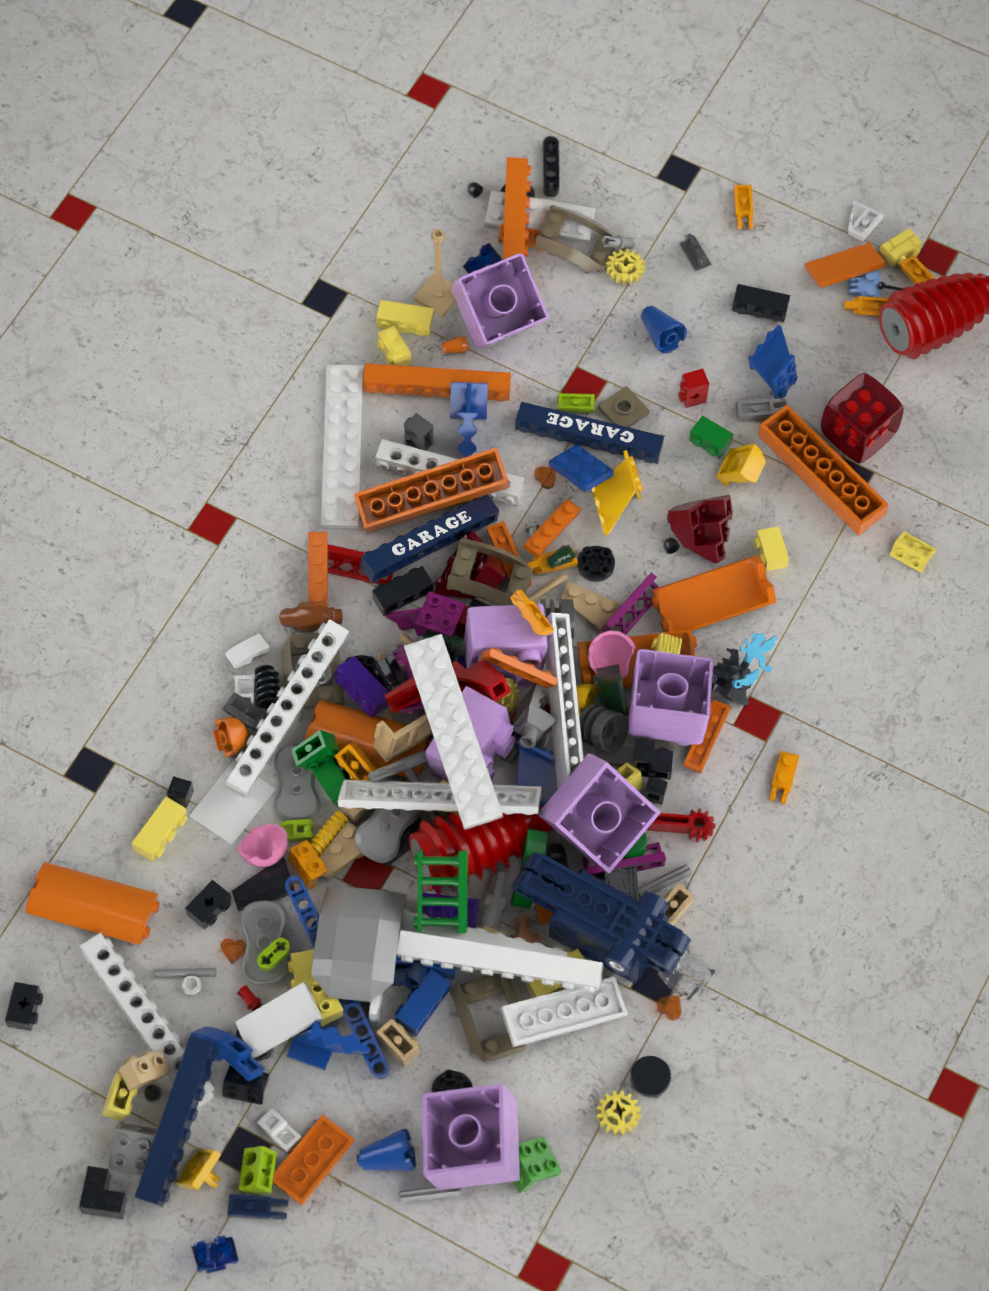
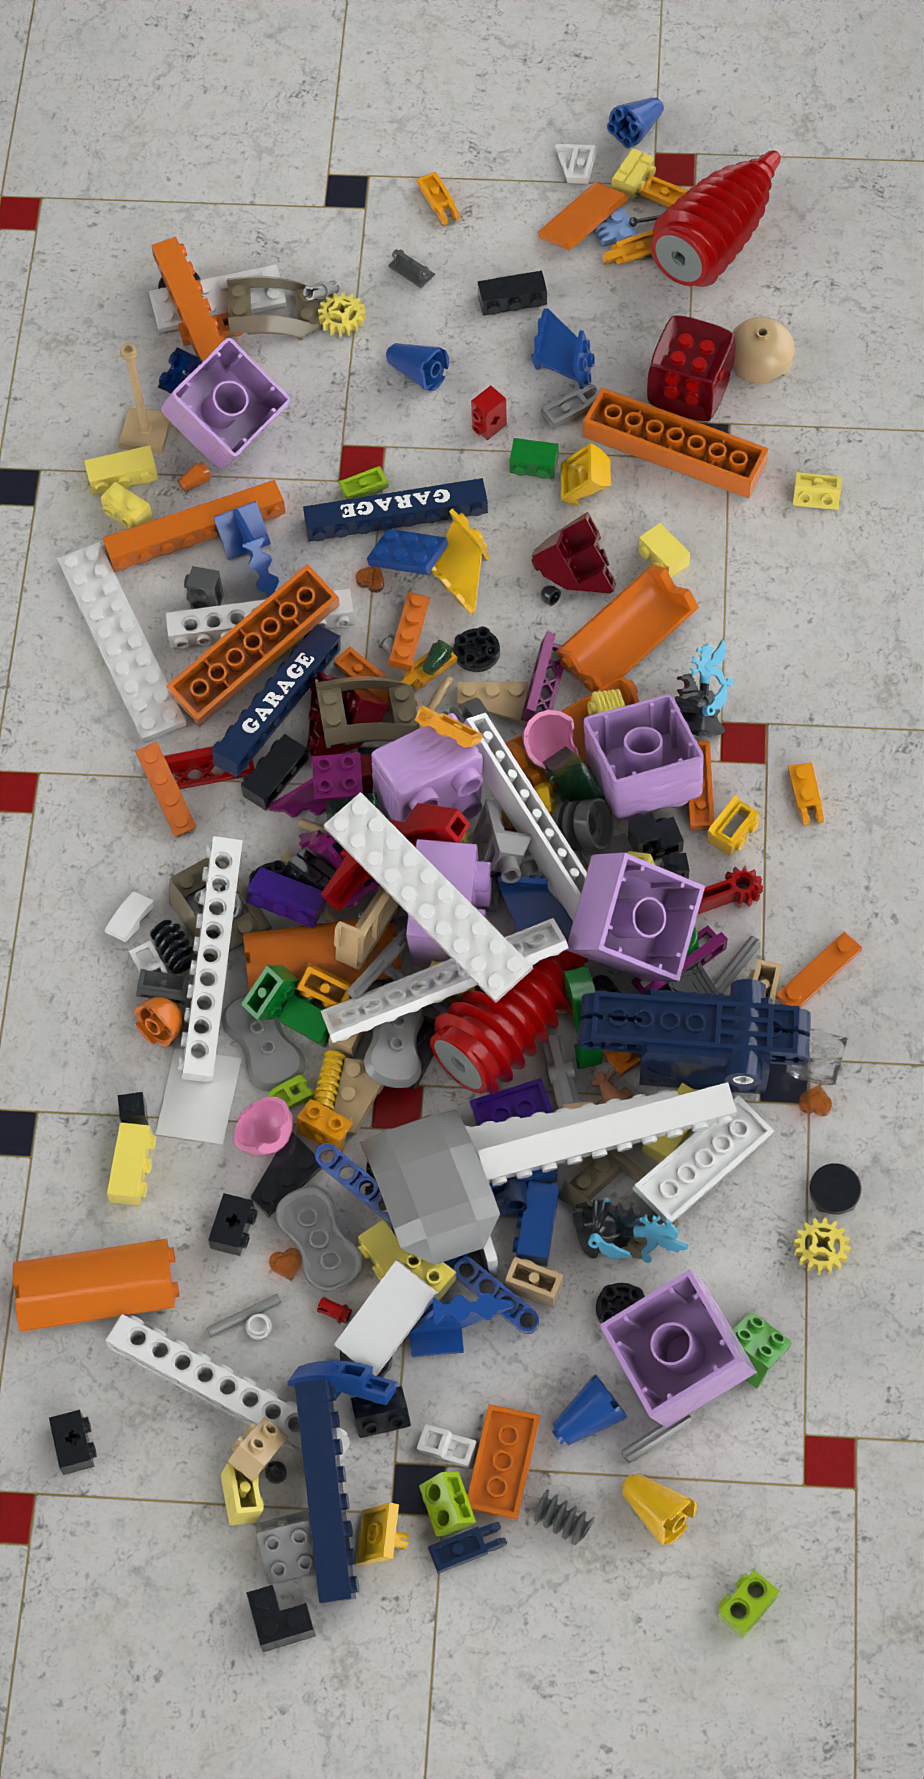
camera: 20 degrees left, 0 degrees up
(215, 1255) = (448, 1625): clear blue cylinder -> none
(270, 951) = (333, 1245): lime beam -> none
(309, 617) = (182, 847): dark orange animal -> none
(331, 1219) = (562, 1518): none -> dark grey piece
(404, 1244) = (659, 1507): none -> yellow cone
(459, 901) = (529, 1087): green fence -> none
(467, 1031) = (607, 1230): none -> helmet
(475, 189) = (128, 298): black hinge -> none
(524, 670) = (463, 795): orange plate -> none
(551, 166) = (200, 240): black beam -> none
(629, 418) = (405, 475): dark tan piece -> none
(715, 777) = (732, 826): none -> yellow window
(722, 913) = (819, 971): none -> orange plate
(923, 206) = (634, 120): none -> blue cone
(926, 425) = (762, 350): none -> tan cylinder

